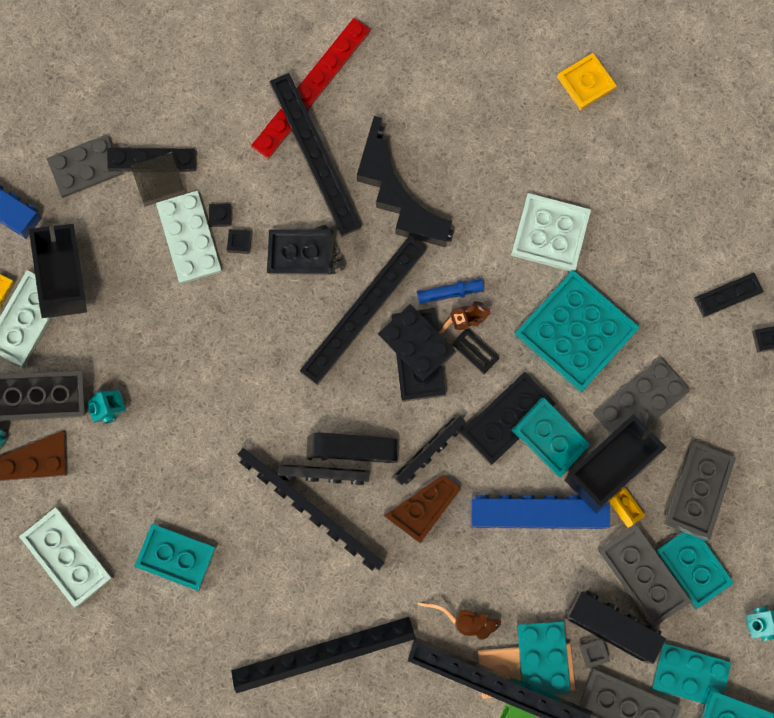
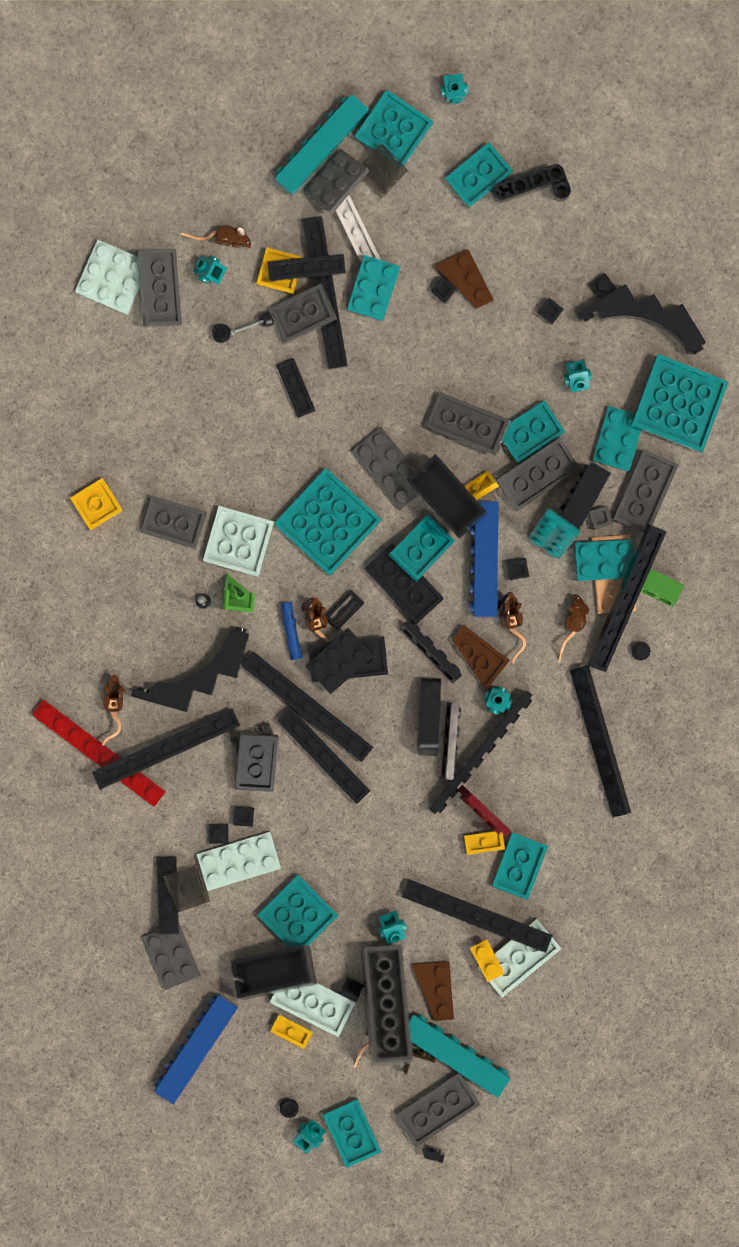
camera: 95 degrees left, 10 degrees up
(37, 361) = (351, 989): none -> black plate
(62, 517) = (487, 960): none -> yellow plate
(115, 507) = (477, 916): none -> black plate
(125, 301) = (297, 914): none -> teal plate
(204, 514) = (484, 842): none -> yellow plate
(238, 510) = (482, 811): none -> dark red plate
(306, 329) = (324, 755): none -> black plate
(369, 100) = (114, 701): none -> reddish brown animal
(372, 537) = (490, 700): none -> teal brick
(433, 704) = (640, 650): none -> black plate
(471, 544) = (511, 617): none -> reddish brown animal
(482, 192) = (201, 598): none -> black hinge
(488, 229) = (237, 597): none -> bright green slope
(528, 552) = (518, 569): none -> black plate
(570, 163) = (173, 522): none -> dark grey plate
(575, 592) = (553, 534): none -> teal plate

